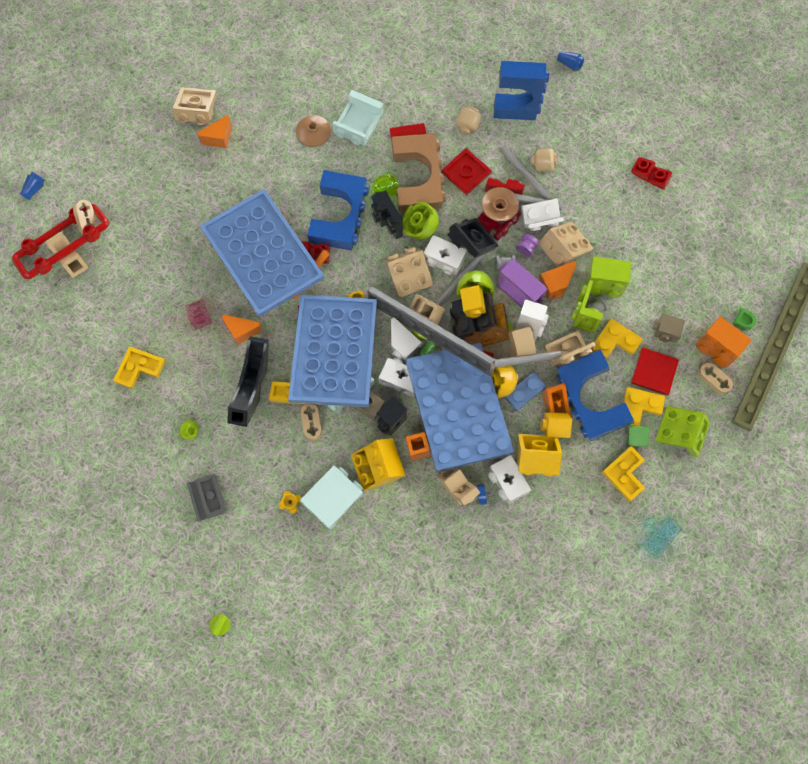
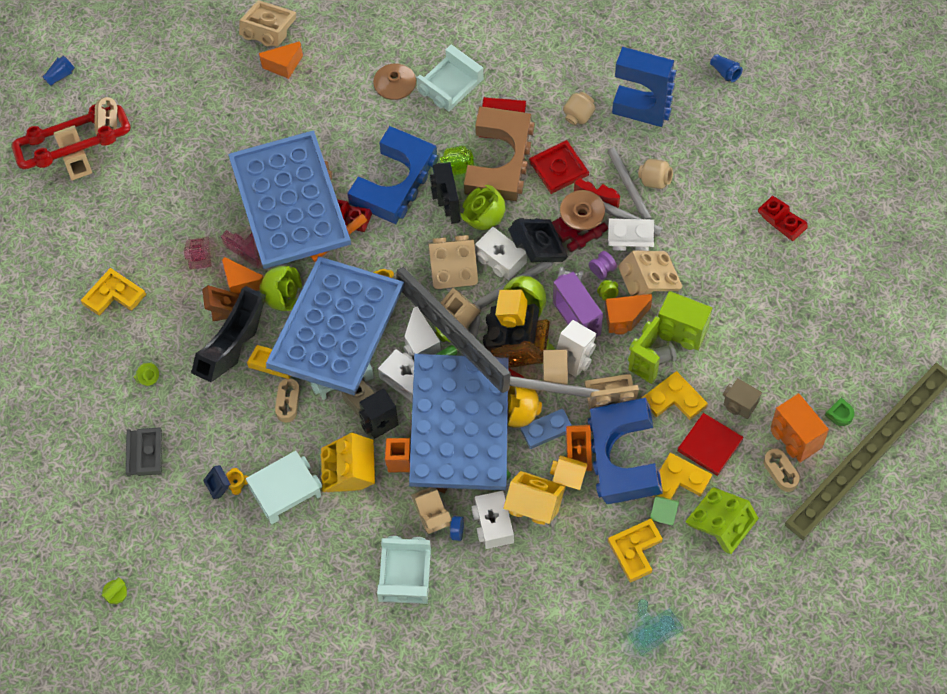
camera: 20 degrees right, 10 degrees down
(231, 353) = (219, 302): none -> dark orange slope
(238, 302) = (244, 248): none -> clear pink slope
(275, 507) = (216, 482): none -> dark blue tile
(276, 328) = (280, 285): none -> lime cylinder
(451, 541) = (404, 570): none -> light aqua panel
(537, 264) = (608, 289): none -> lime plate

